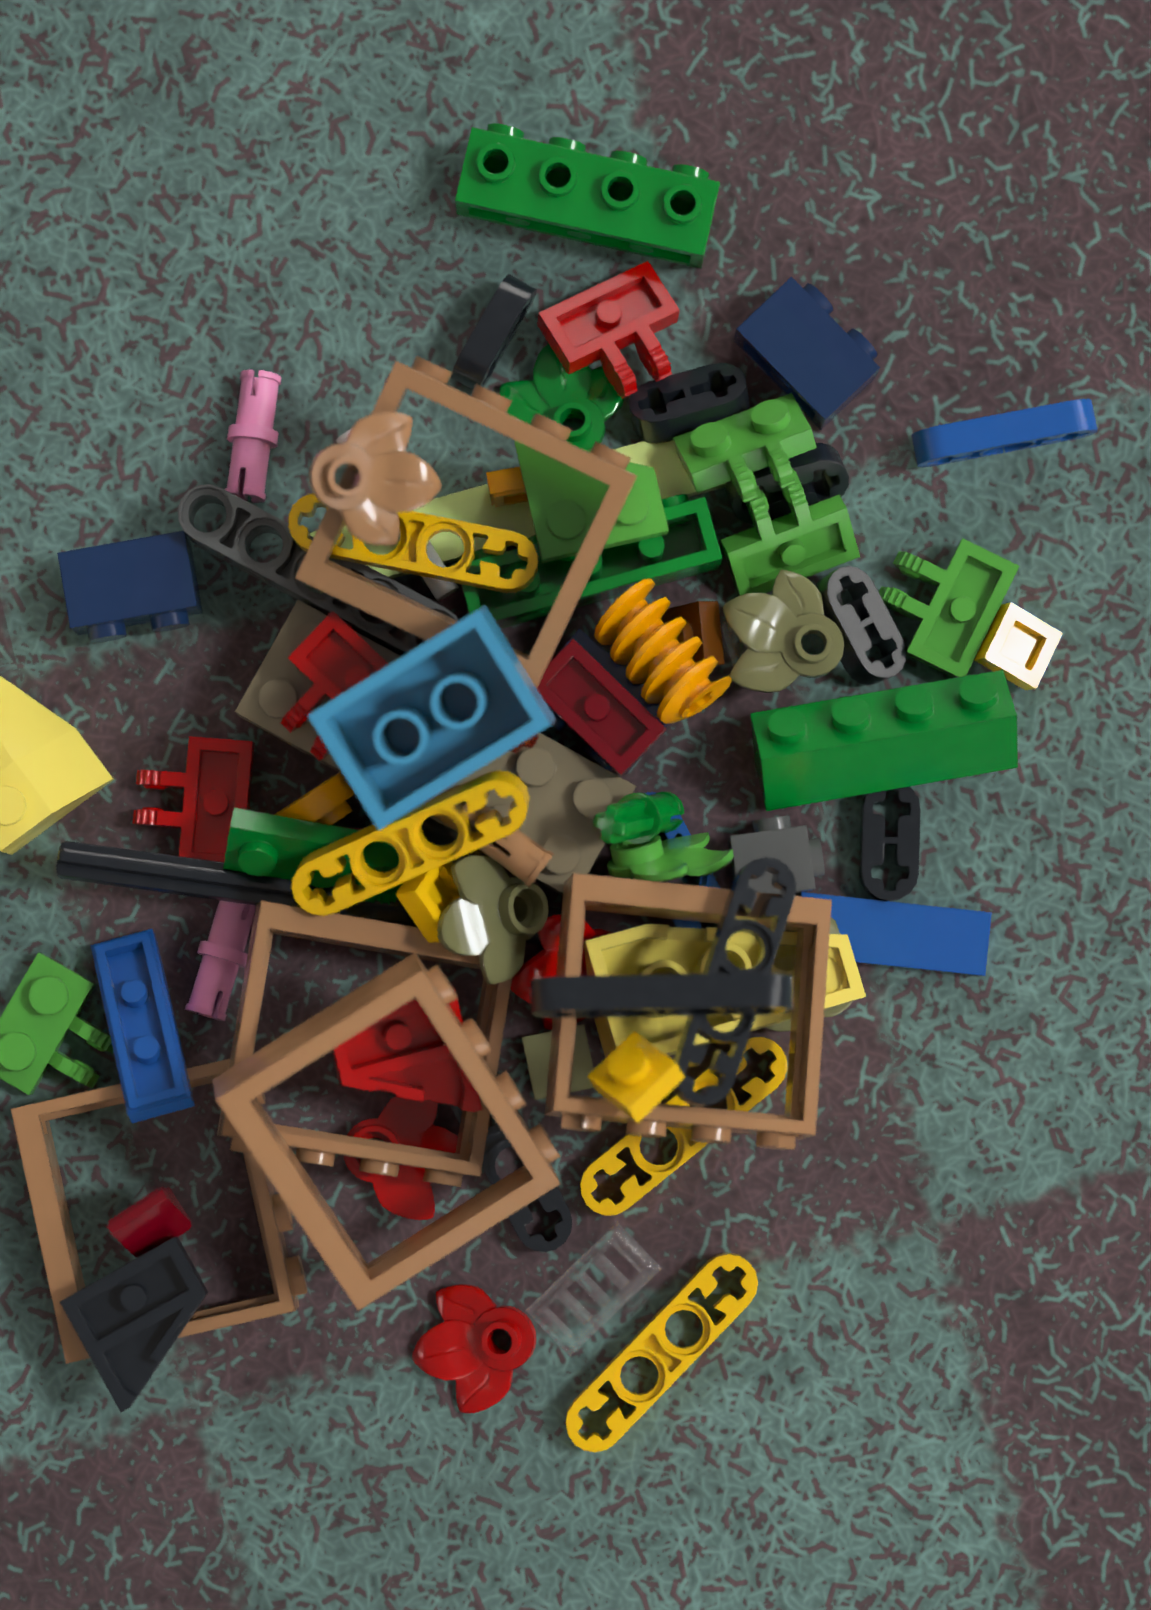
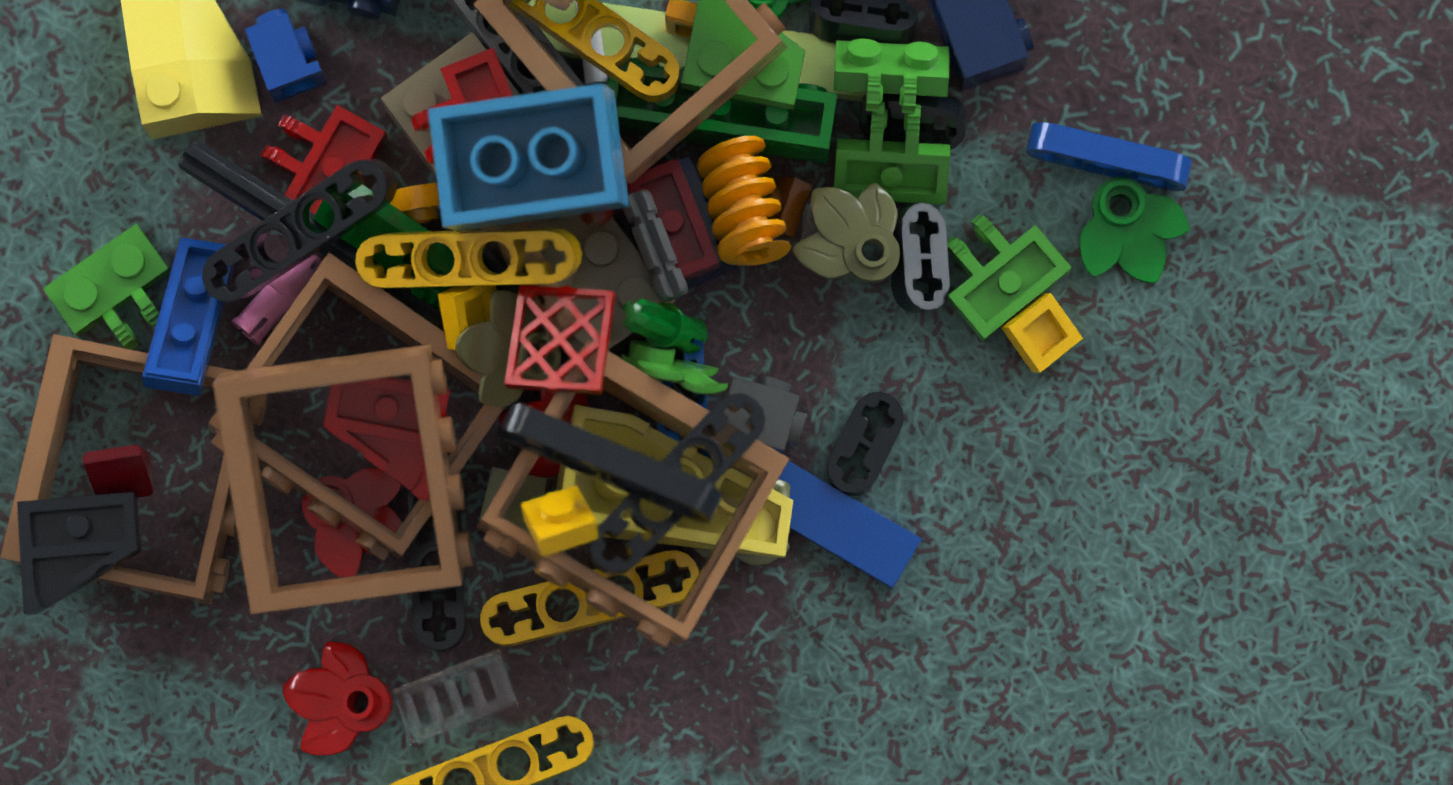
camera: 30 degrees right, 5 degrees down
(109, 708) = (284, 55): none -> blue brick
(219, 891) = (297, 227): none -> black beam
(561, 935) = (519, 336): none -> red window
(595, 743) = (655, 246): none -> dark grey axle
(885, 740) = (896, 357): green brick -> none
(1066, 506) = (1131, 239): none -> green plate

